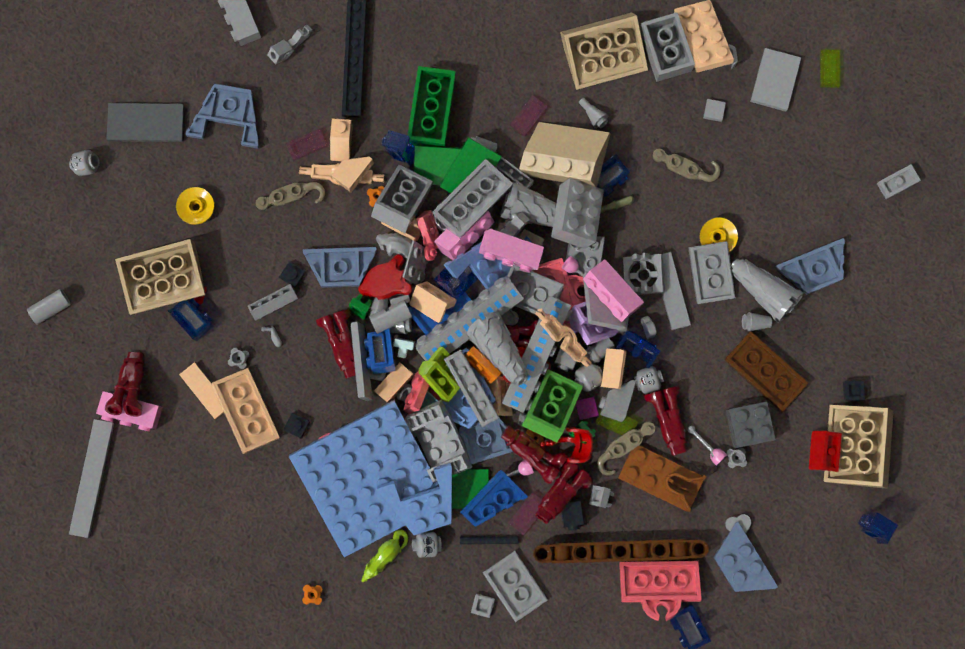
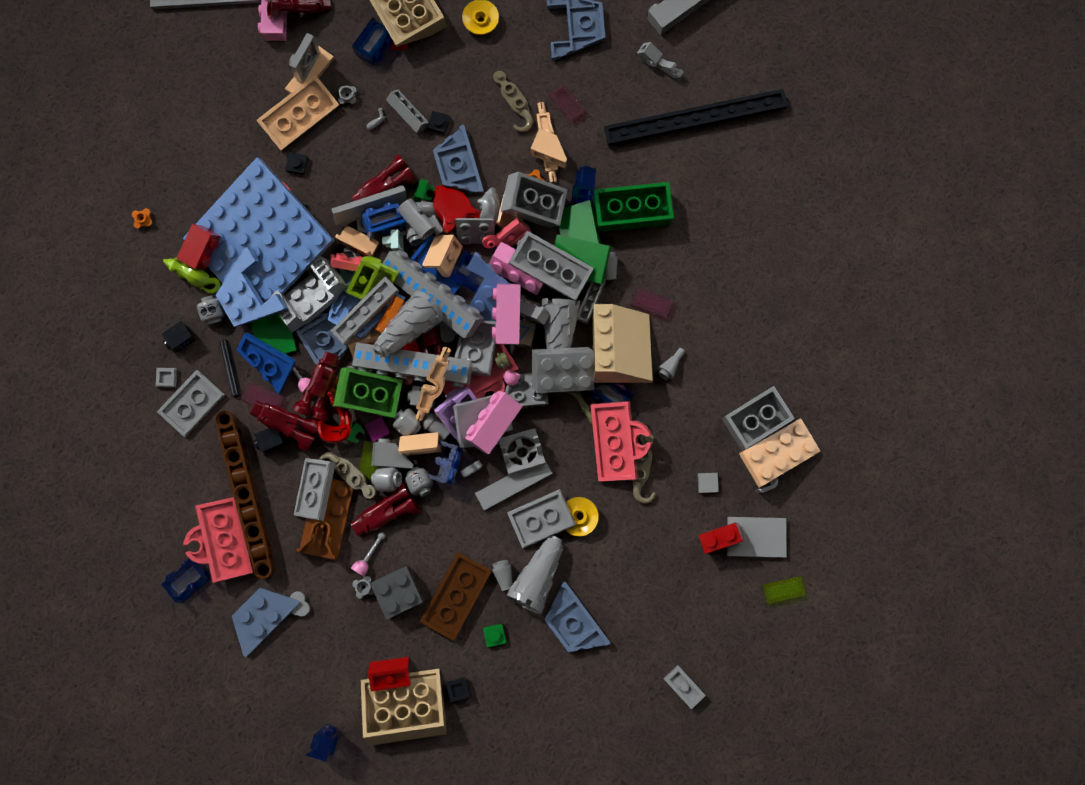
camera: 70 degrees right, 0 degrees up
(198, 392) = (304, 58): none -> light grey plate
(340, 139) = (579, 132): light nougat slope -> none
(362, 539) = (198, 247): none -> red brick
(446, 583) = (178, 337): none -> black brick
(552, 269) = (502, 361): none -> olive plate
(600, 496) = (293, 462): light grey tile -> none
(604, 50) = (737, 359): tan slope -> none
(632, 481) = (314, 489): none -> light grey tile
(640, 409) = (386, 479): none -> light grey head
(657, 181) = (617, 441): none -> coral plate
(771, 110) = (721, 538): none -> red brick
(810, 344) = (494, 635): none -> green plate

